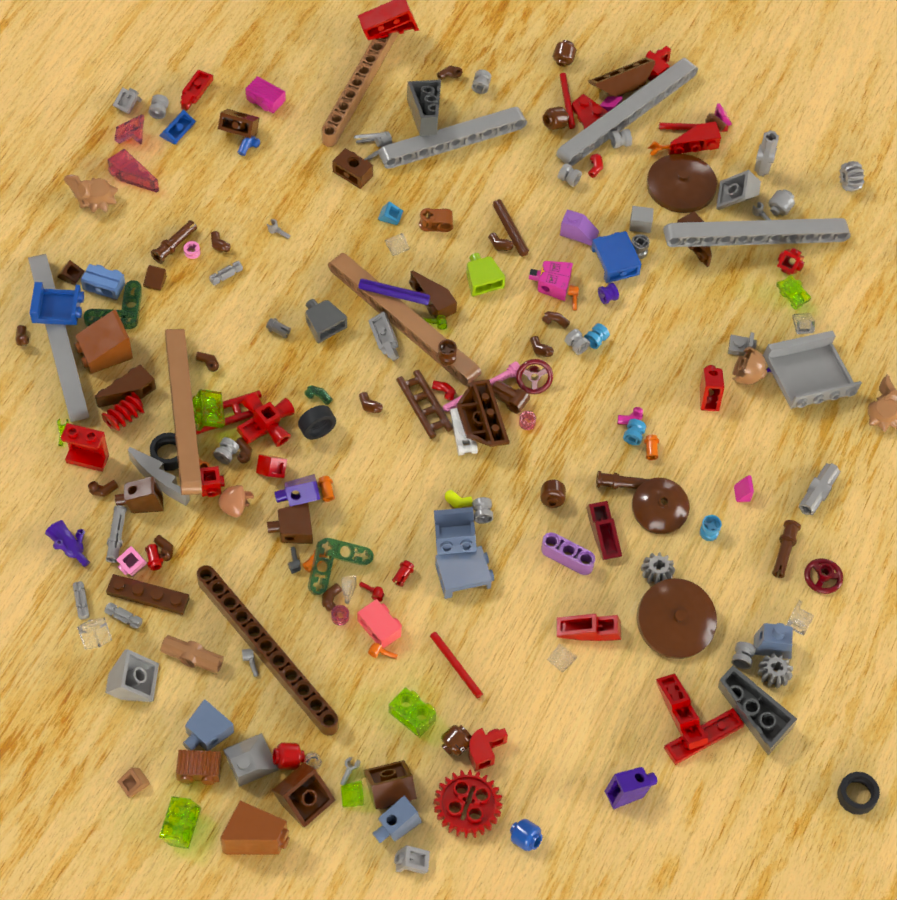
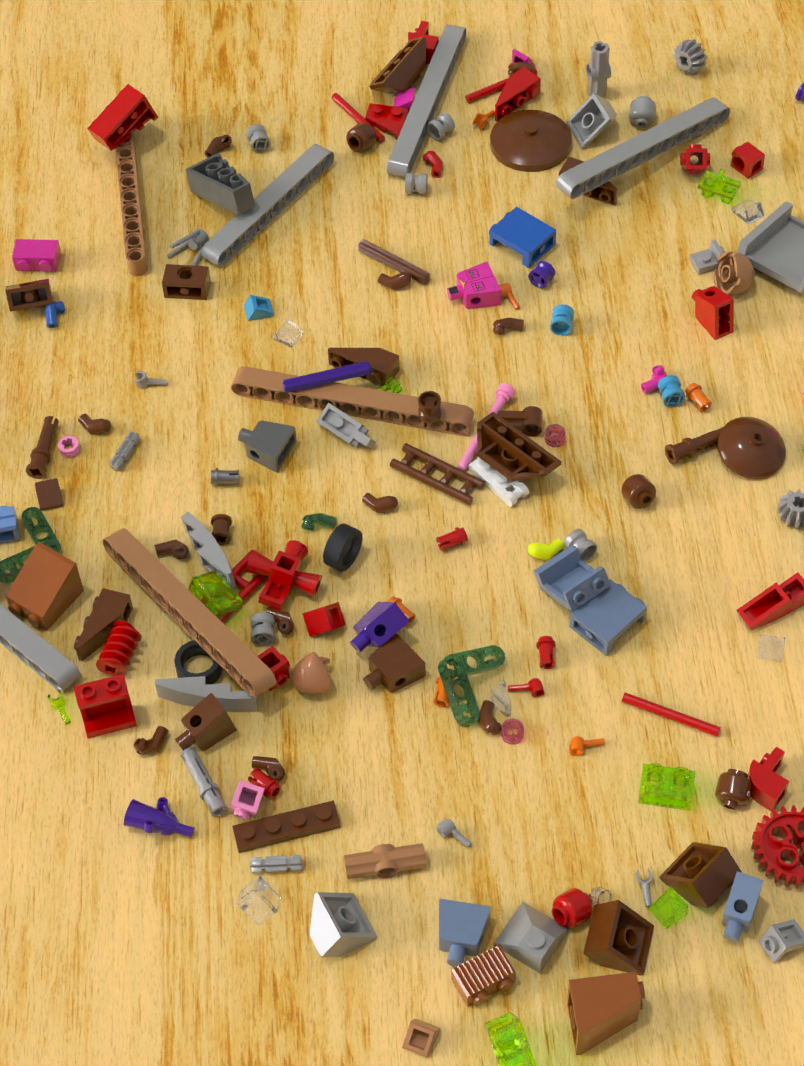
camera: 25 degrees left, 5 degrees down
(81, 601) = (215, 874): light grey axle -> none
(228, 377) = (208, 550): none -> light grey slope
(248, 364) = (221, 528): none -> reddish brown bush
(268, 657) = (470, 819): reddish brown beam -> none
(294, 566) = (425, 705): dark grey hand -> none
(379, 623) = (562, 716): coral brick -> none
(399, 457) = (453, 538): none -> red pin
(437, 220) = (314, 289): dark orange piece -> none
(445, 387) = (447, 446): red arm -> none
(483, 275) = (403, 318): lime torso -> none
(534, 380) = (522, 386): dark red piece -> none
(541, 349) = (513, 361): reddish brown arm -> none
(564, 53) = (323, 73): reddish brown head -> none
(572, 561) = (698, 541): medium lavender beam -> none
(577, 341) = (547, 335): light grey wheel -> none
(578, 228) = (463, 228): medium lavender slope -> none
(604, 530) = (715, 500): dark red slope -> none
(640, 243) = (539, 210): flat silver wheel -> none
(641, 219) = (519, 190): light grey panel -> none
(759, 211) = (623, 130): light grey hand -> none
(832, 282) = (747, 160): none -> red brick

